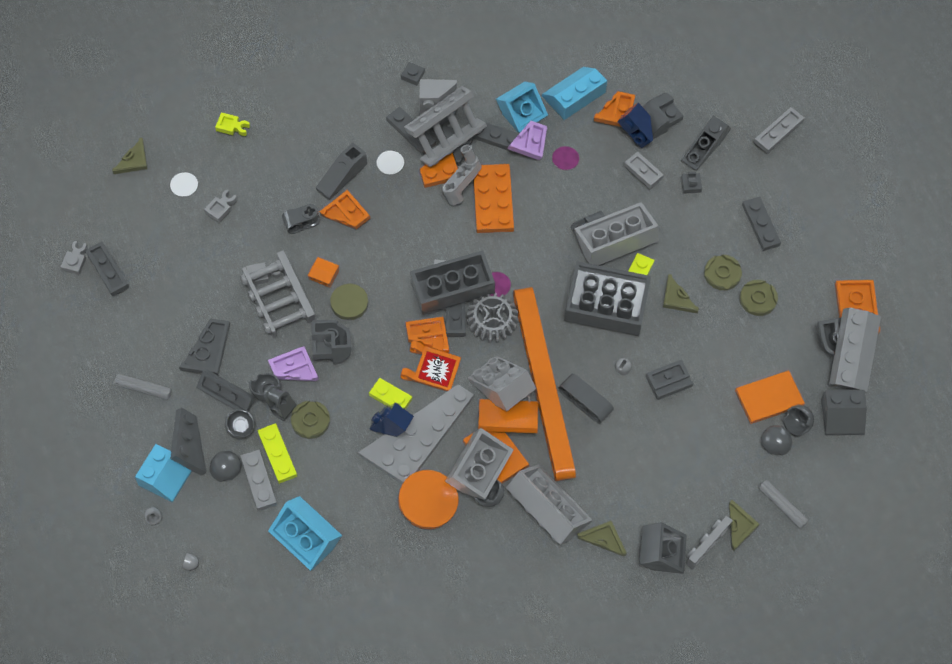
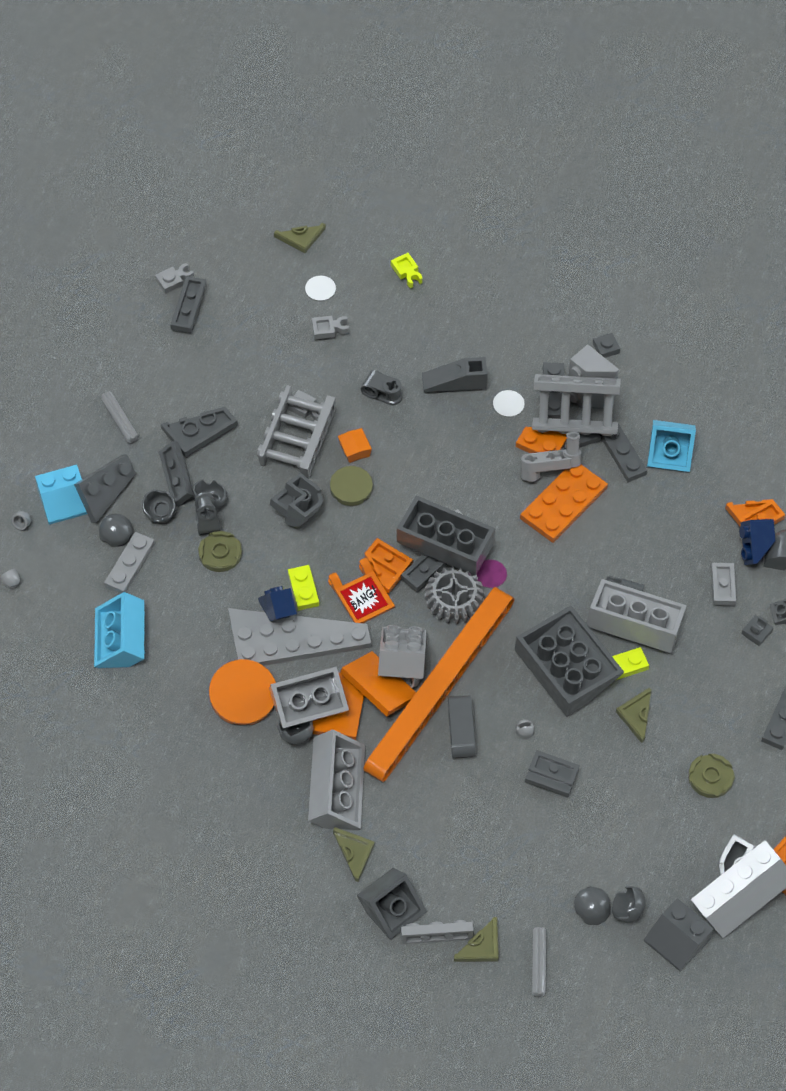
camera: 45 degrees right, 5 degrees down
(277, 453) = (166, 555): neon yellow plate -> none
(293, 366) = (250, 498): lavender wing -> none
(346, 211) = (426, 411): orange wing -> none
(530, 141) = (646, 478): lavender wing -> none
(565, 158) = (666, 519): flat silver sticker -> none
(576, 91) = (734, 471): medium azure slope -> none
(722, 272) = (702, 727): olive tile -> none
(769, 396) = (626, 864): orange tile -> none

